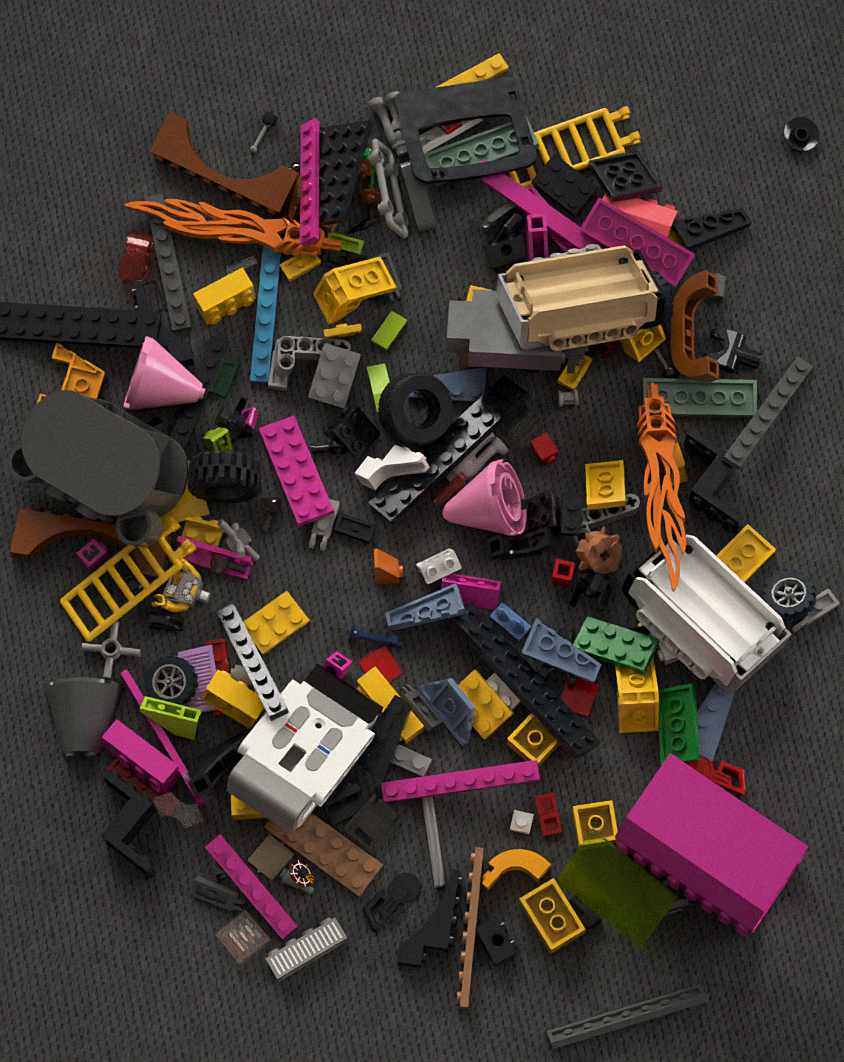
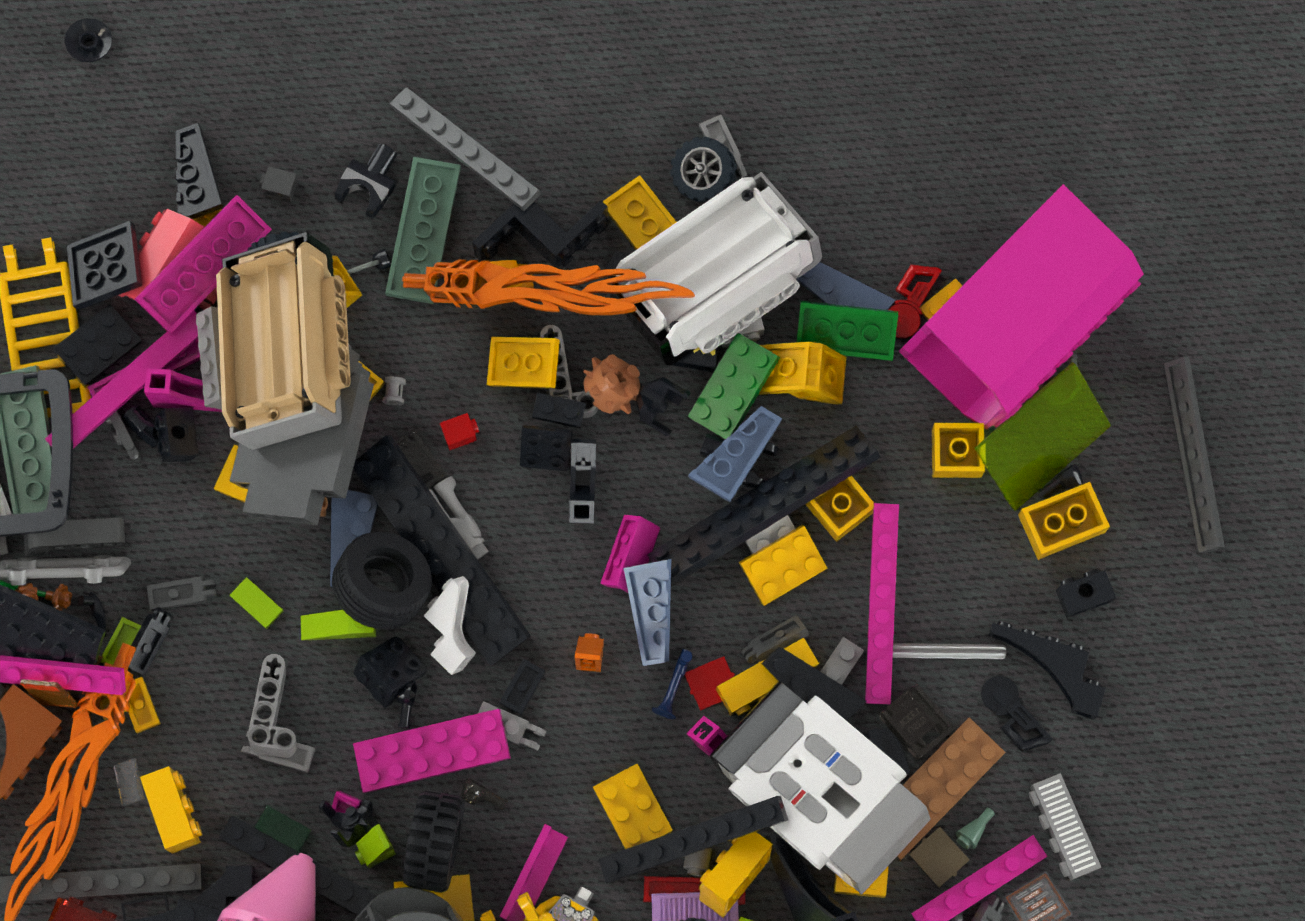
camera: 85 degrees left, 5 degrees up
(202, 530) = (496, 886): yellow bracket -> none
(219, 565) = (546, 867): clear smoke bar -> none
(238, 540) = (519, 837): light grey bar -> none
(265, 316) = (204, 762): dark azure plate -> none
(301, 873) = (968, 820): clear red piece -> none
(334, 375) = (310, 681): light grey plate -> none
(342, 331) = (251, 661): yellow plate -> none
(348, 285) = (191, 639): yellow bracket -> none
(439, 566) = (592, 587): white bracket -> none
(444, 495) = (494, 557): clear red plate -> none
(451, 706) = (781, 600): sand blue wing -> none
(469, 936) = (1074, 624): medium nougat plate -> none
(490, 502) = (524, 509): bright pink cone -> none
(510, 622) = (679, 512): medium blue tile -> none
(515, 859) = (986, 556): light orange arch -> none
(521, 822) = (937, 540): white plate -> none
(548, 814) = (932, 506): red slope -> none
(563, 573) = (629, 434): red brick -> none
(580, 697) = (792, 444): red piece -> none
(682, 328) = (335, 234): dark orange arch -> none

